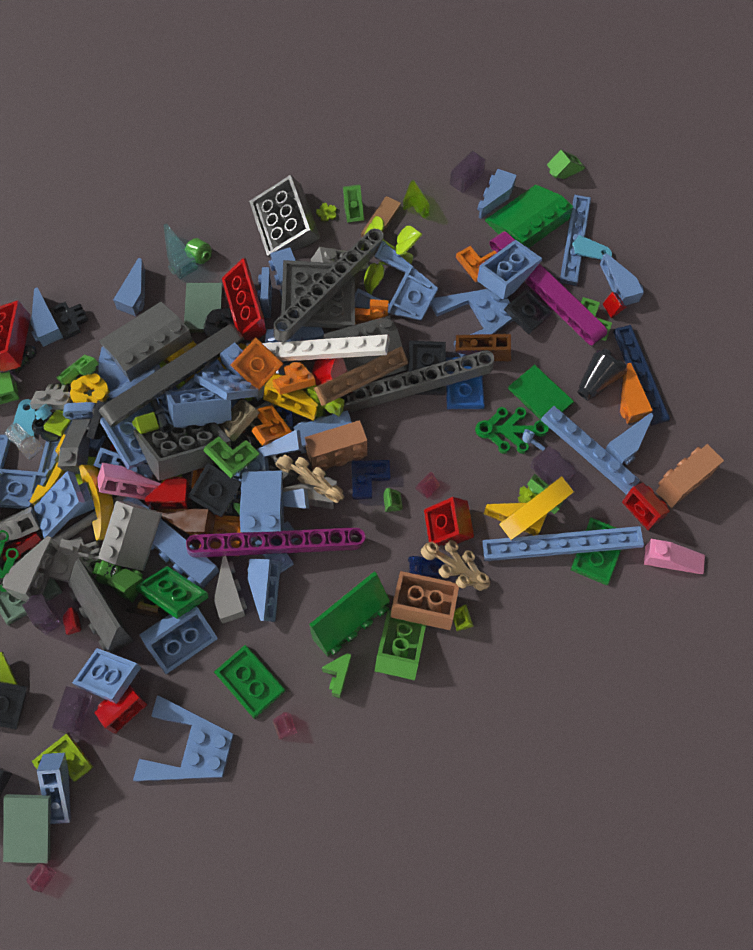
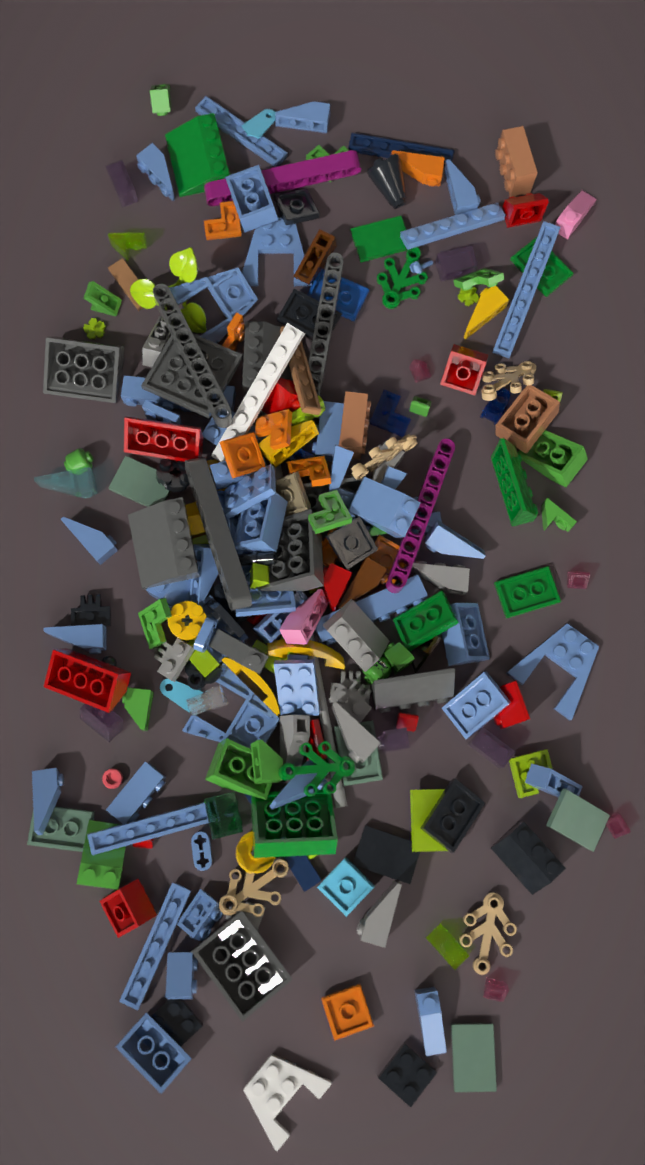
camera: 65 degrees left, 10 degrees up
(43, 412) = (188, 670): medium azure plate -> none
(536, 508) = (495, 290): yellow slope -> none
(613, 304) = (326, 135): red slope -> none

